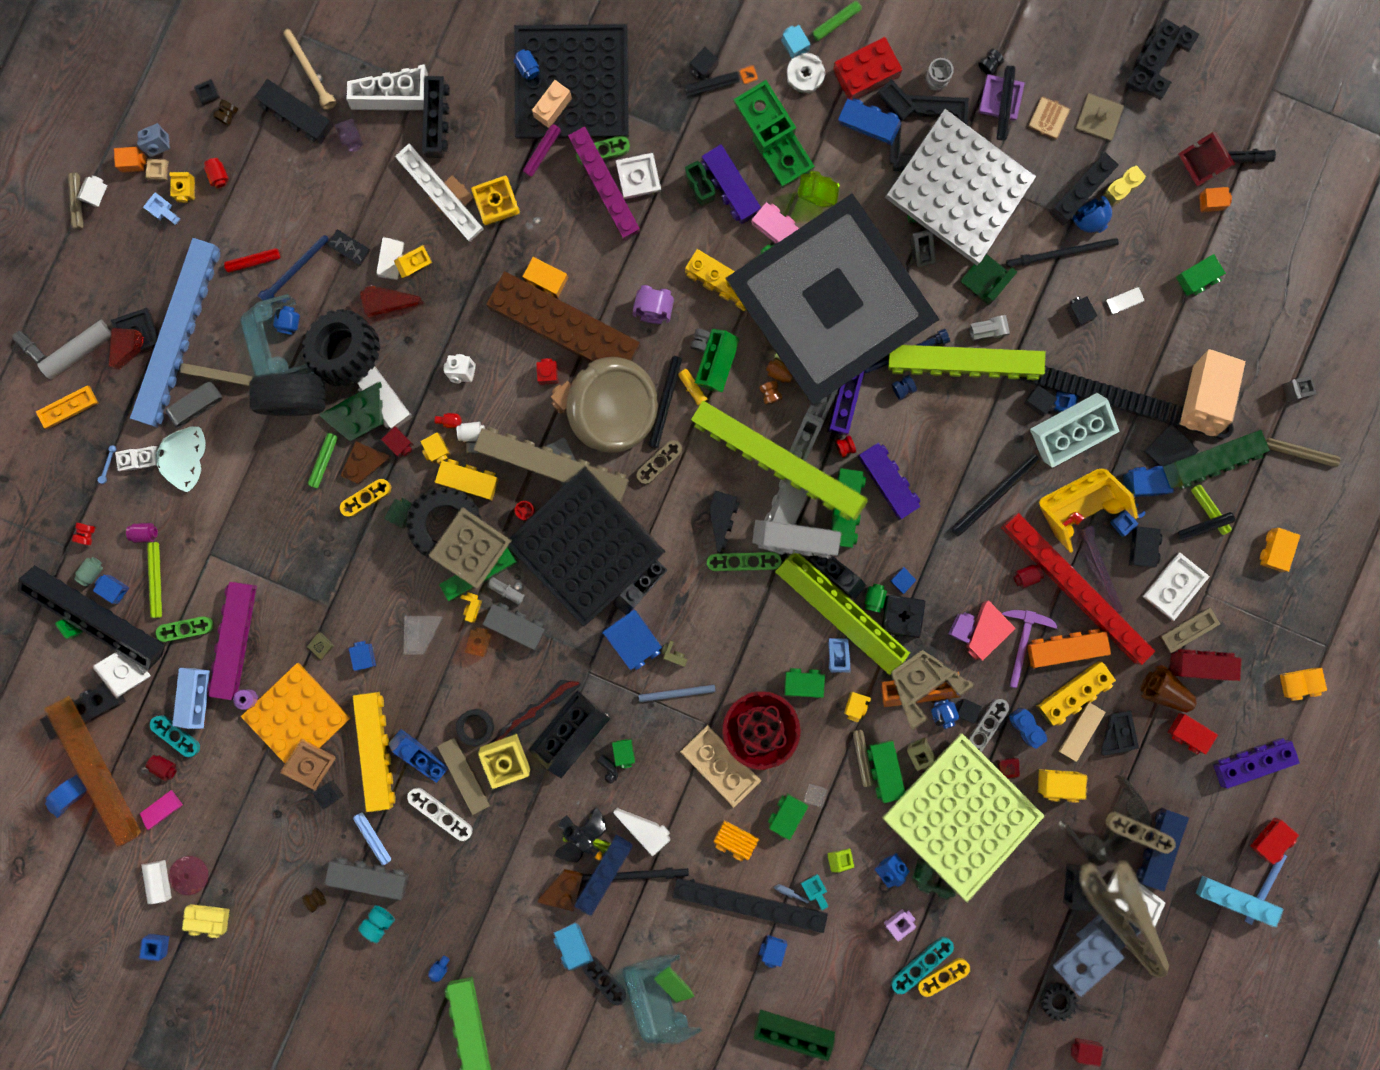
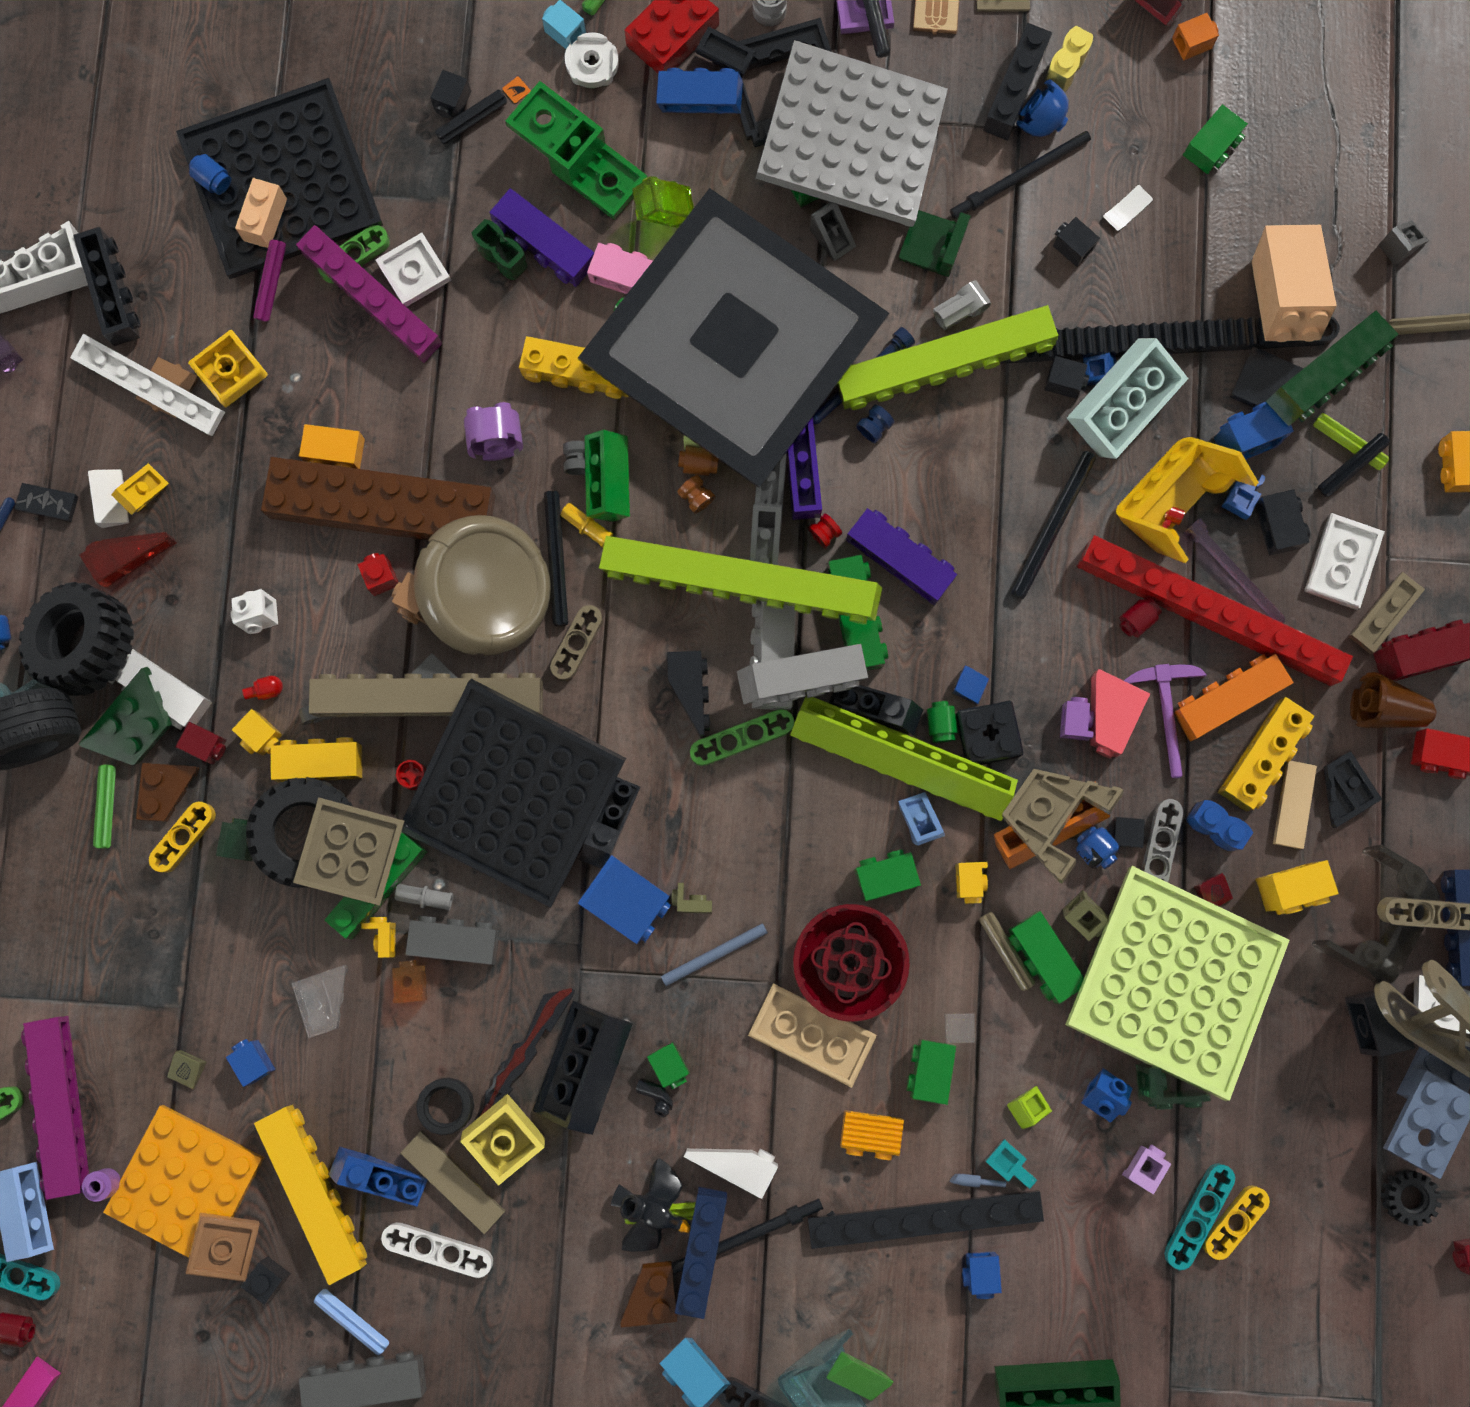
camera: 15 degrees left, 5 degrees down
(469, 431) = (295, 694): white brick -> none

